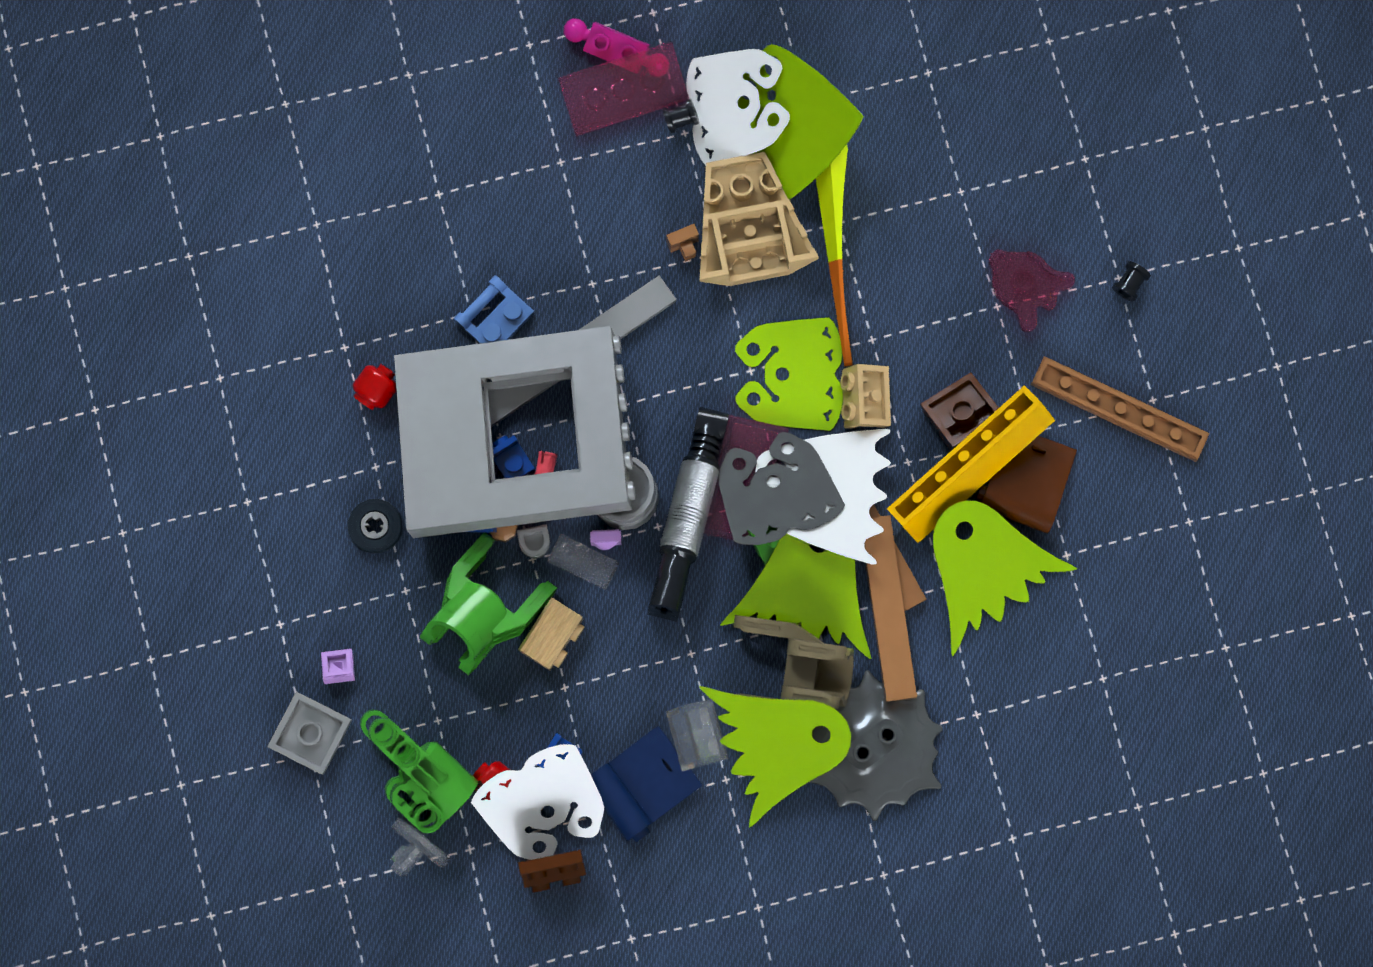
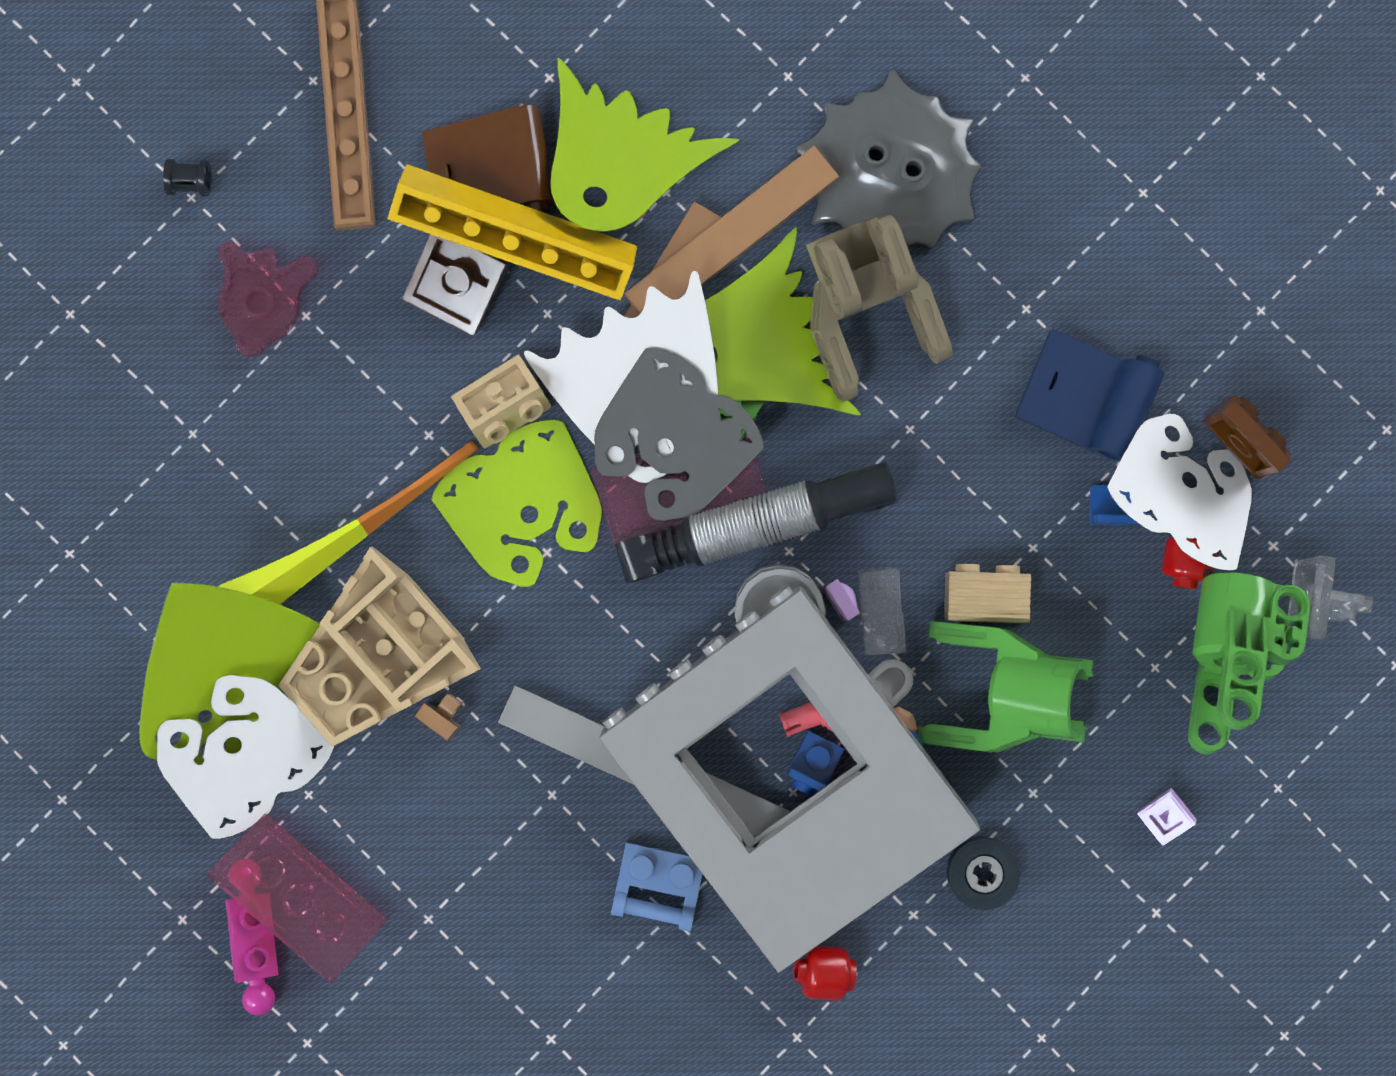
camera: 120 degrees left, 5 degrees up
(309, 733) = (1260, 802): light grey plate -> none
(681, 116) = (291, 810): black bush -> none
(696, 735) = (1003, 364): clear brick -> none
(780, 743) = (962, 261): lime piece -> none

